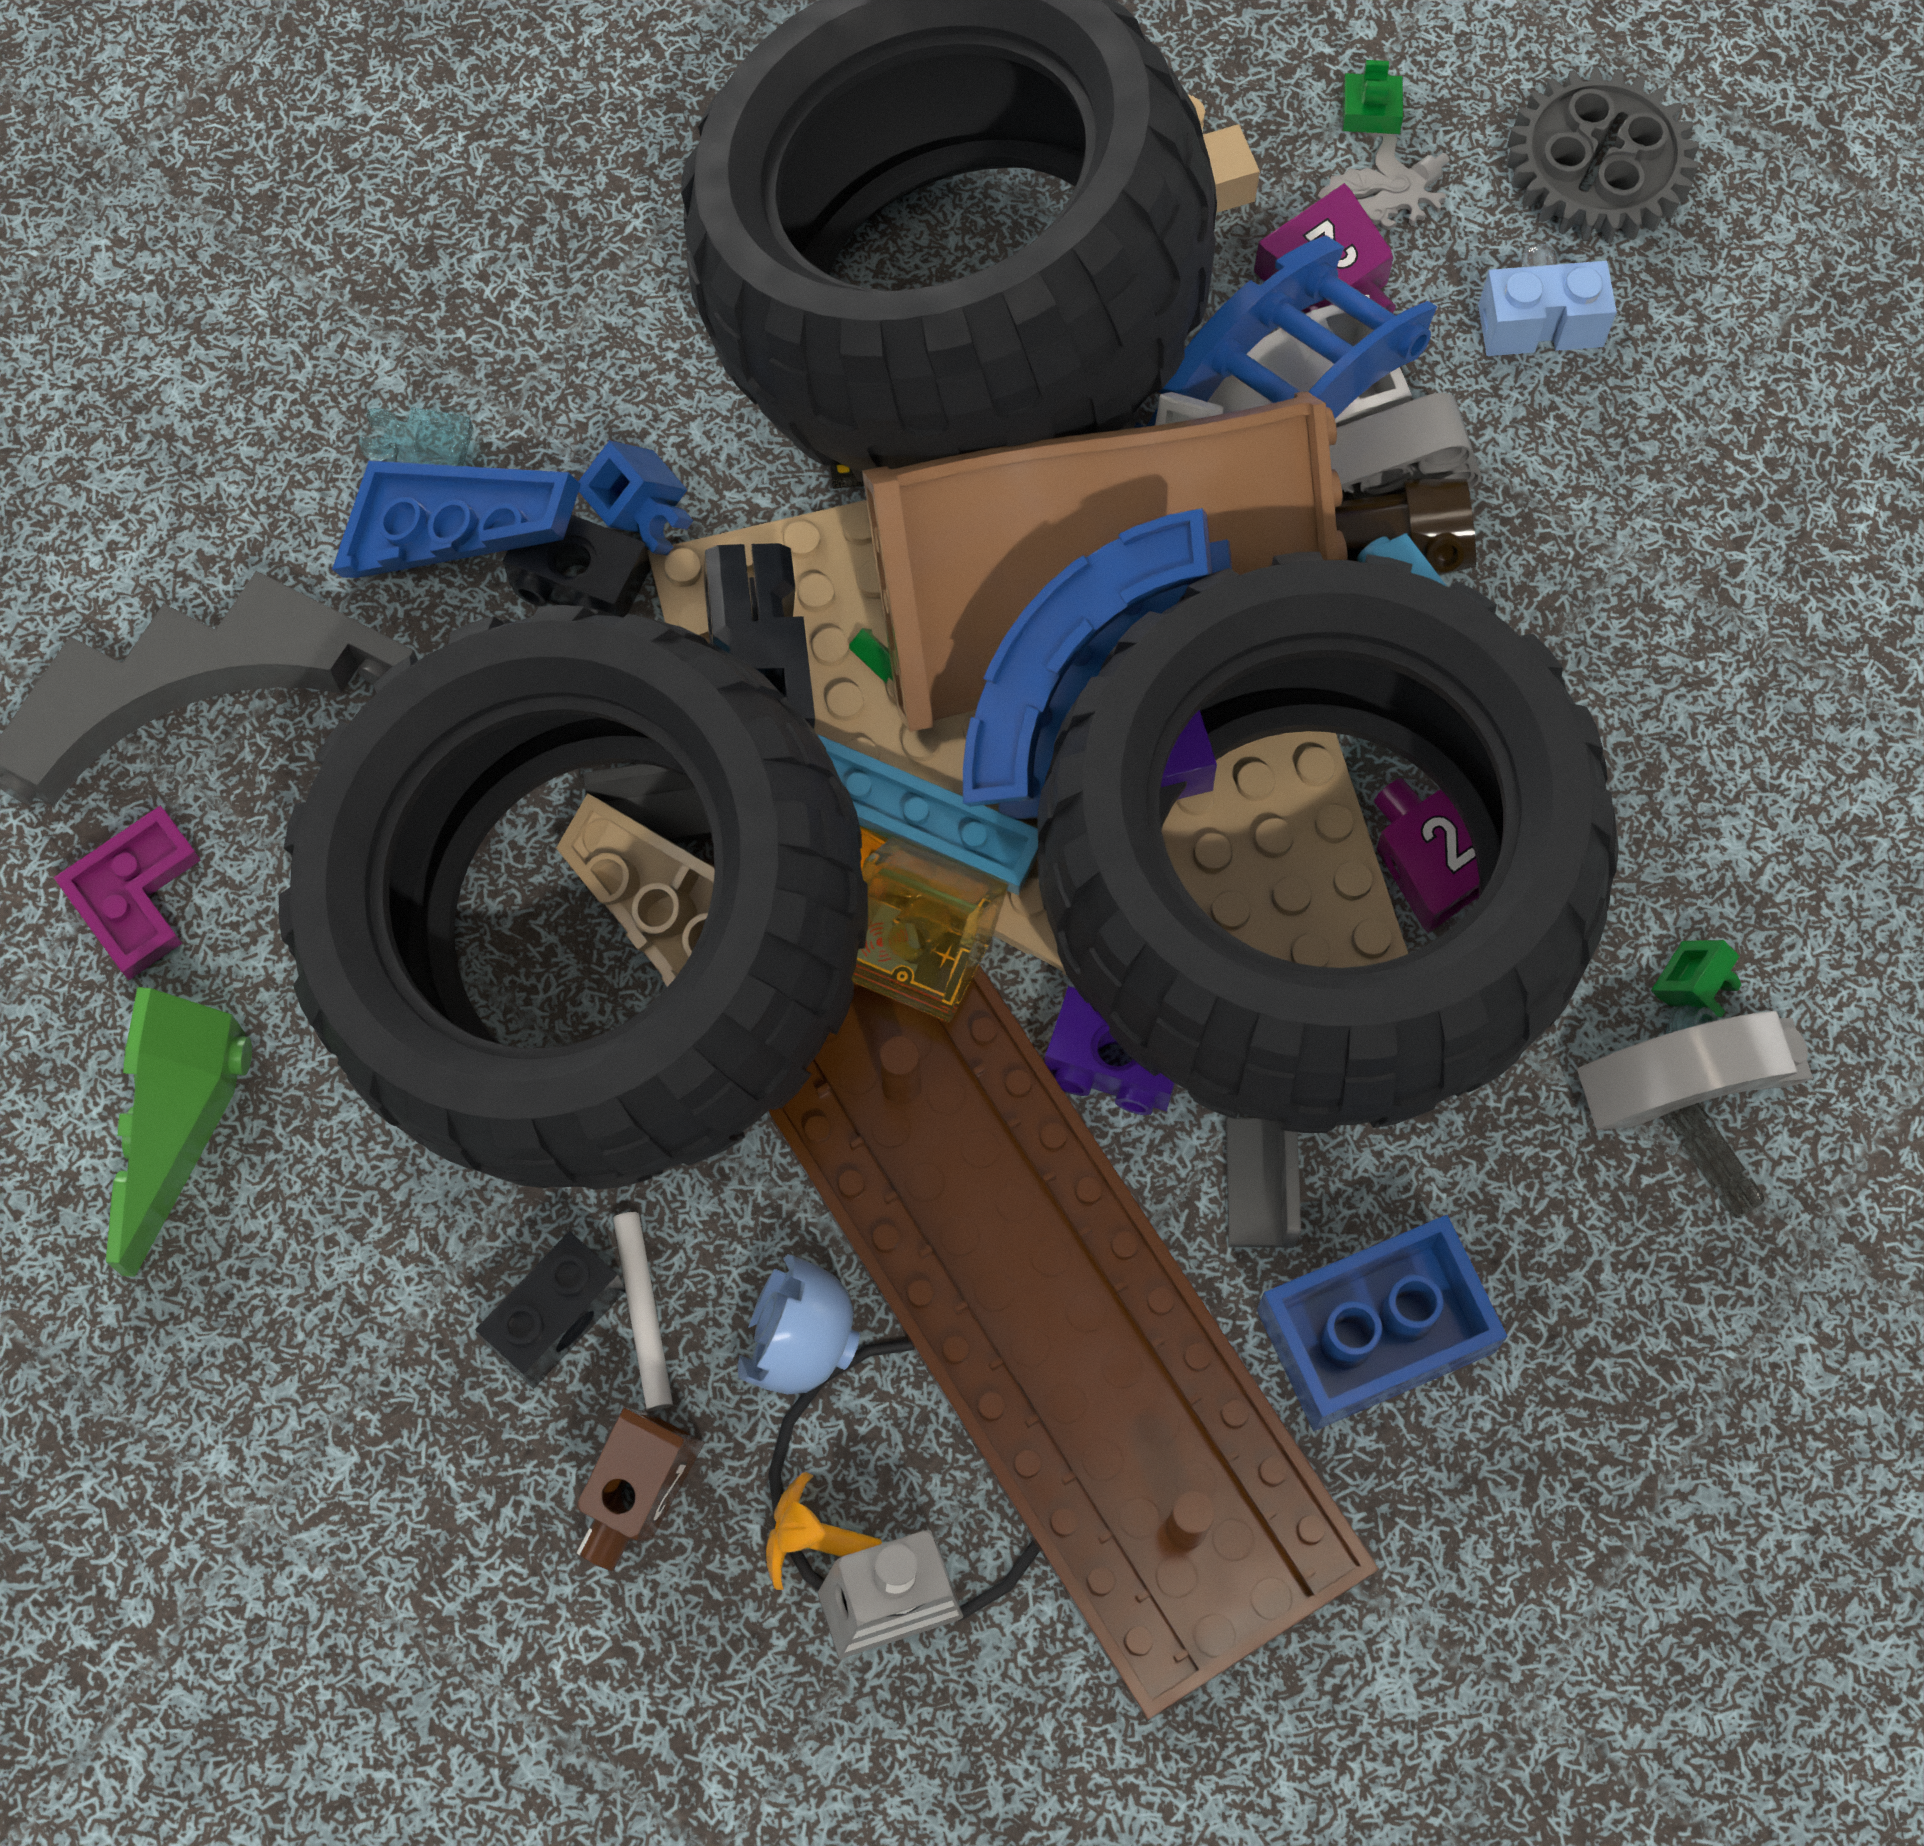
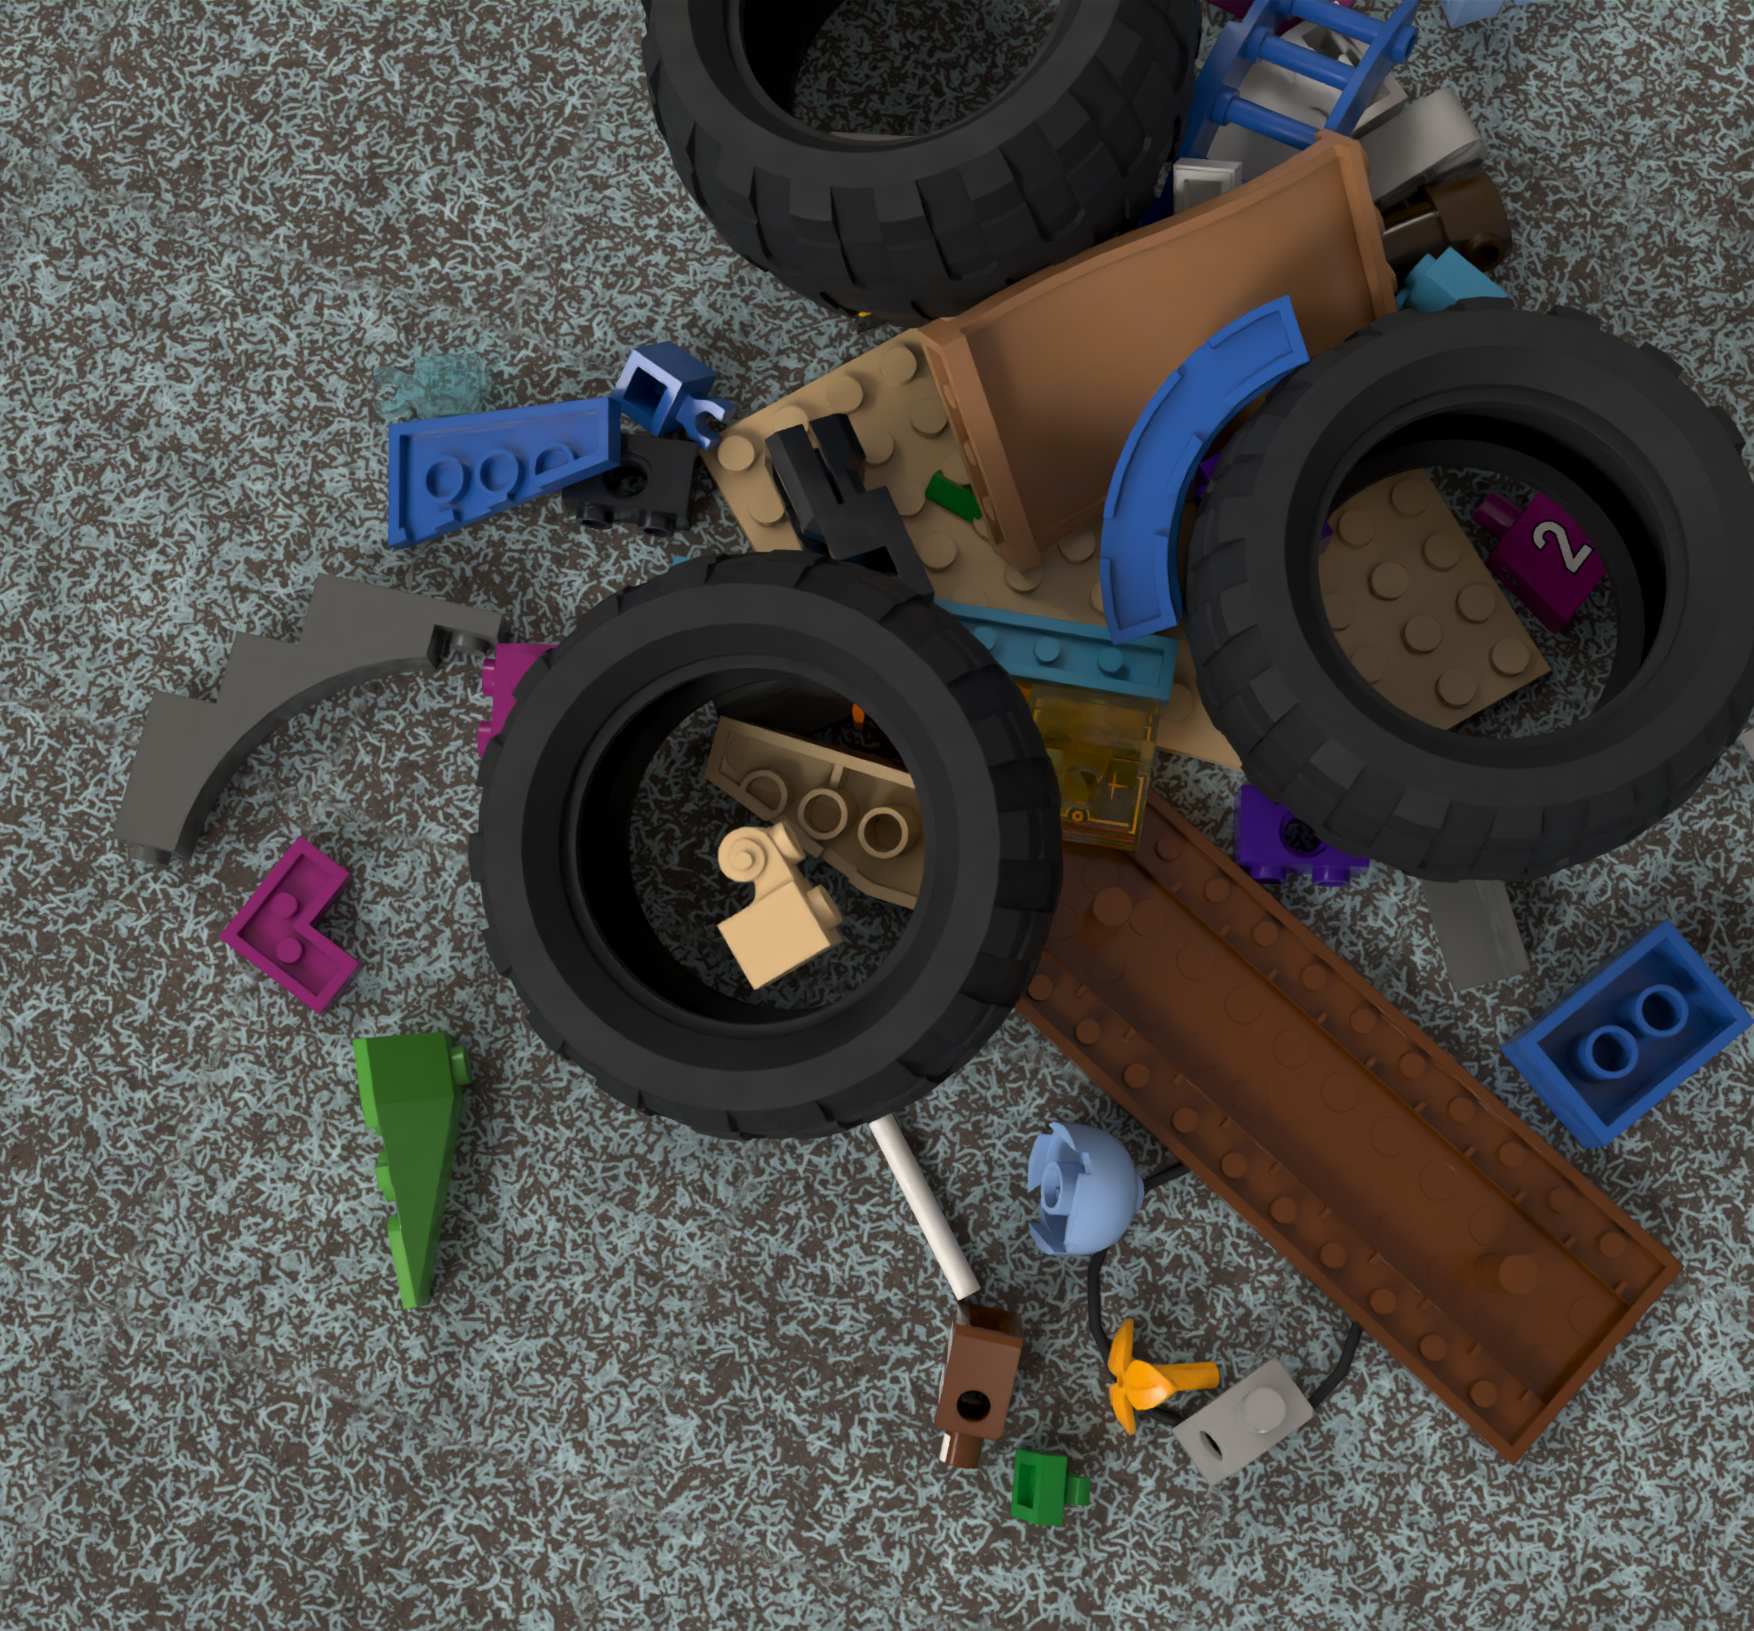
camera: 15 degrees left, 10 degrees up
(551, 938) = (788, 917): none -> tan brick
(551, 1309) = (842, 1234): black brick -> none
(672, 1611) = (1044, 1486): none -> green tile

